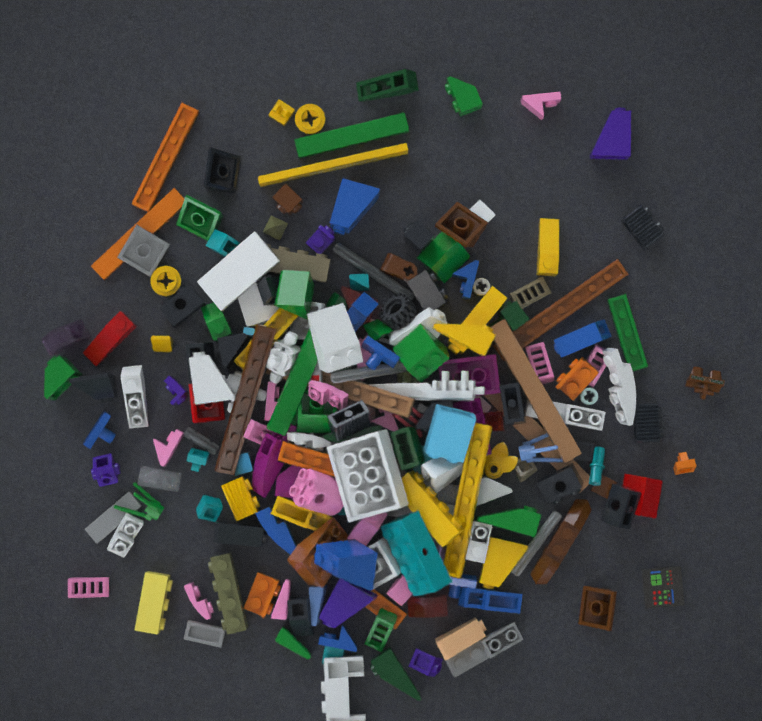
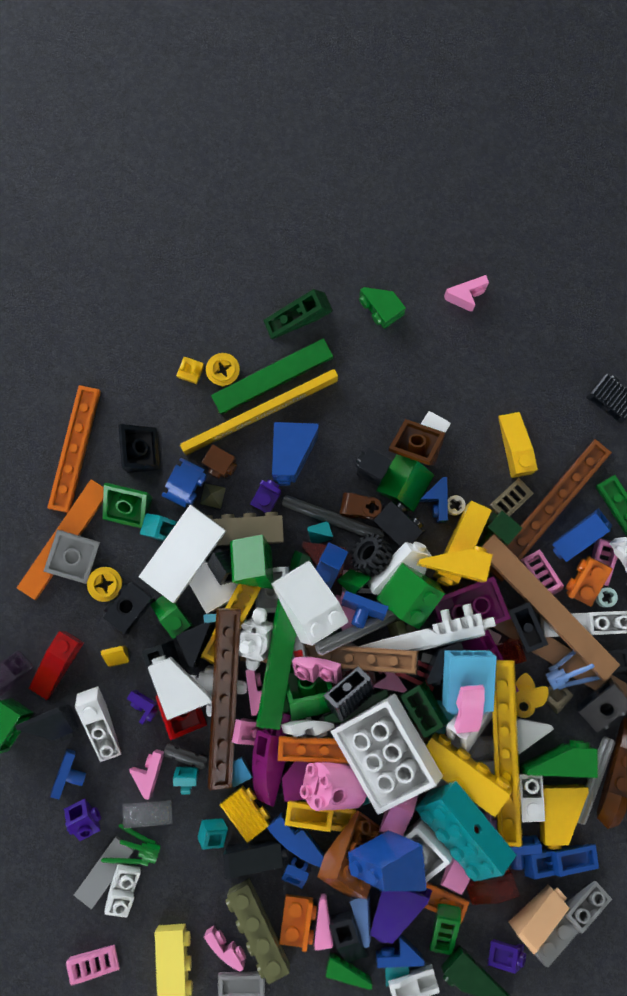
camera: 10 degrees left, 5 degrees down
(253, 211) = (184, 482): none -> blue brick
(268, 557) = (294, 875): none -> blue tile
(444, 454) = (471, 707): none -> bright pink slope
(615, 137) = (556, 310): dark purple slope -> none

